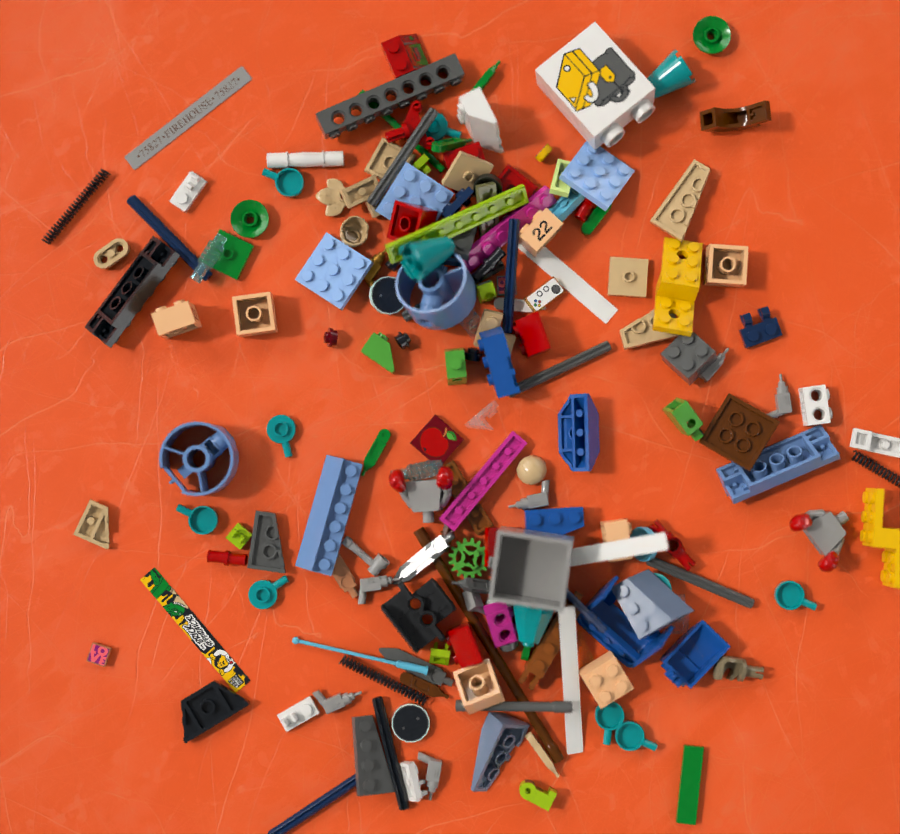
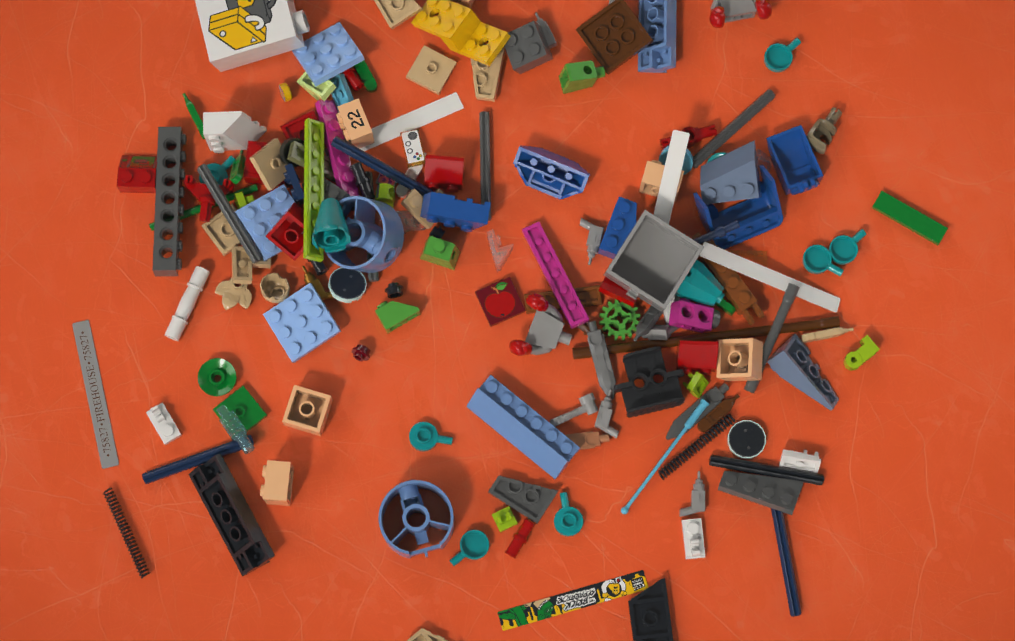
camera: 65 degrees left, 10 degrees down
(111, 252) = (187, 519): tan plate -> none
(287, 182) = (200, 328): teal piece -> none
(376, 450) = (482, 359): green piece -> none
(422, 470) = (520, 323): clear light blue hinge -> none
(433, 772) = (801, 439): light grey piece -> none
(531, 470) = (565, 229): tan hair -> none
(605, 679) = (783, 246): light nougat brick -> none

